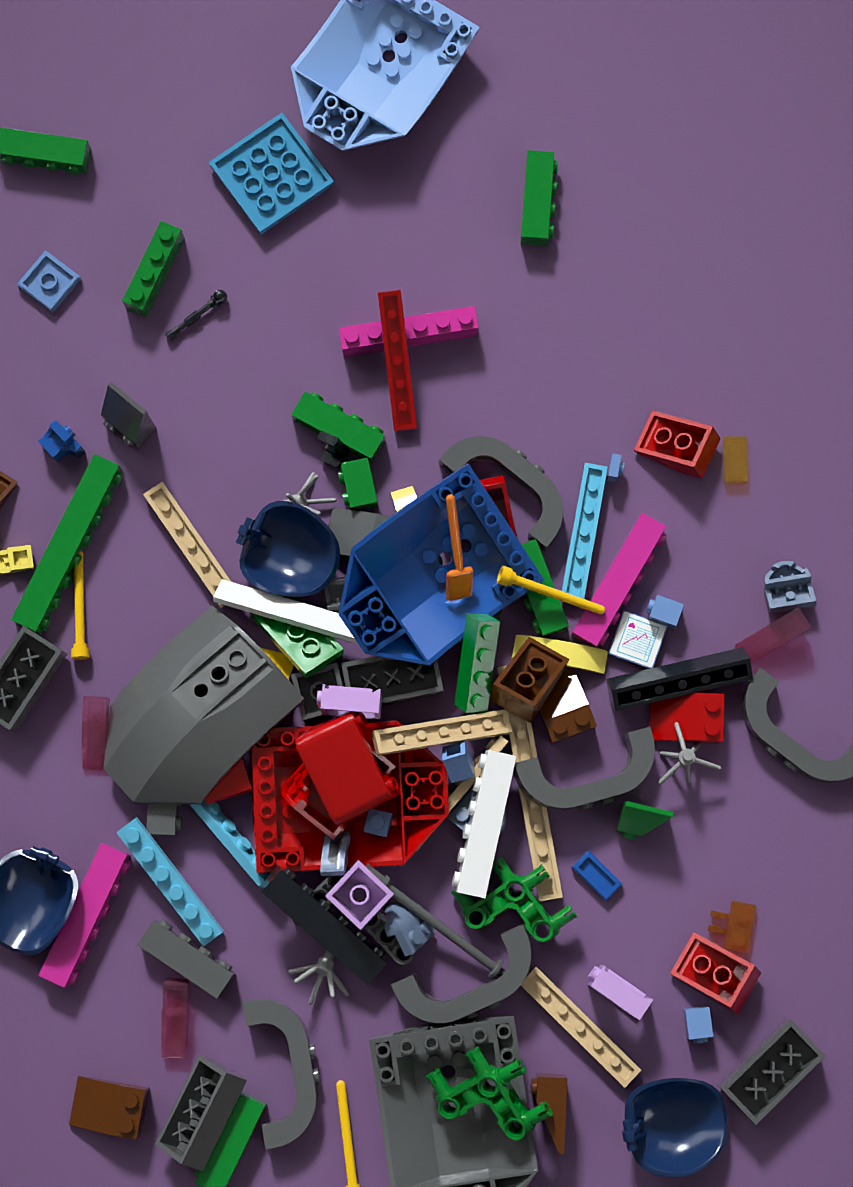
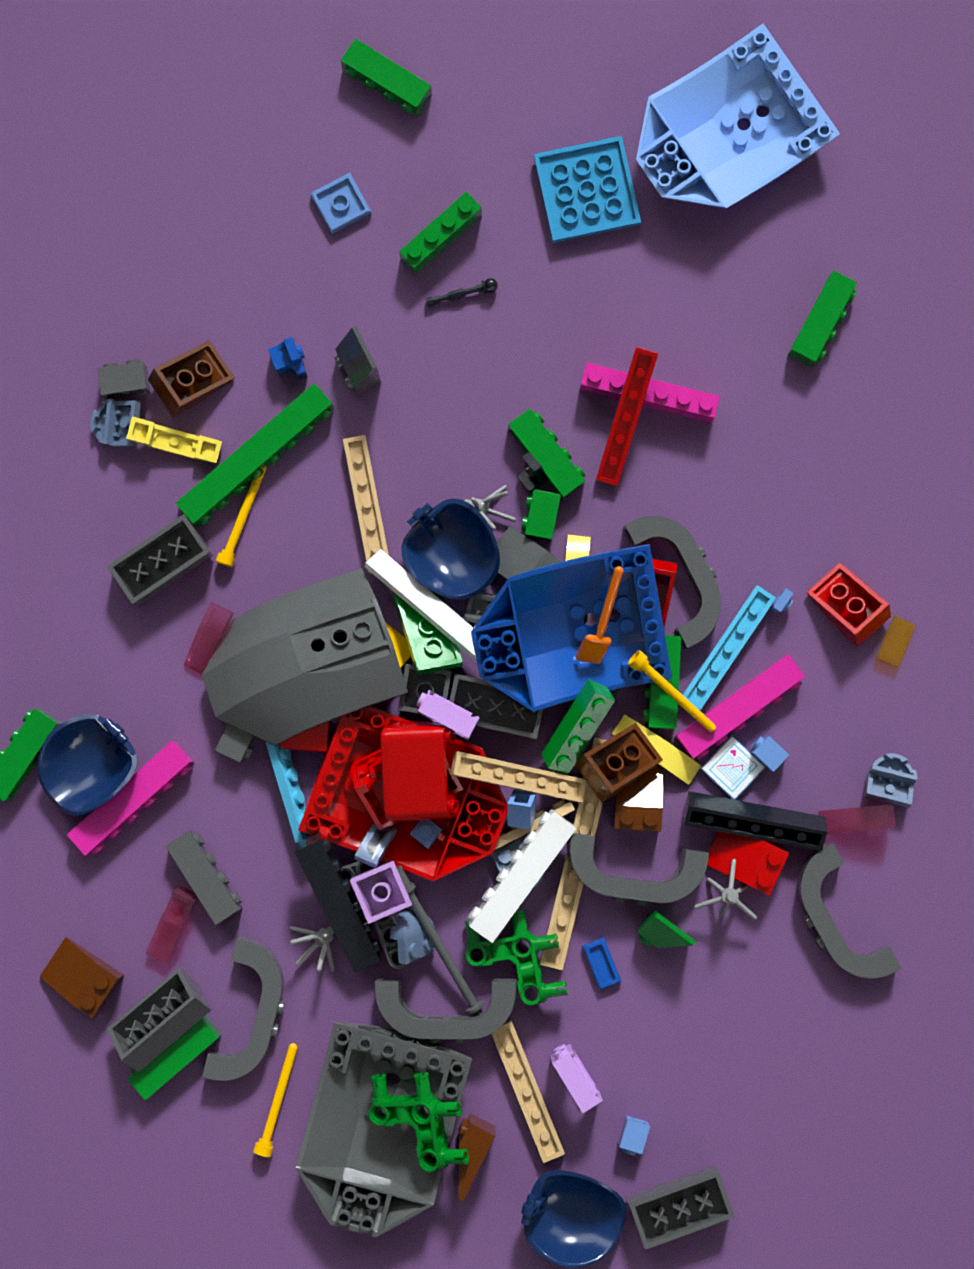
camera: 20 degrees right, 5 degrees up
(170, 881) = (218, 802): medium azure plate -> none
(716, 973) = (669, 1097): red slope -> none
(738, 927) = (708, 1065): clear orange hinge -> none

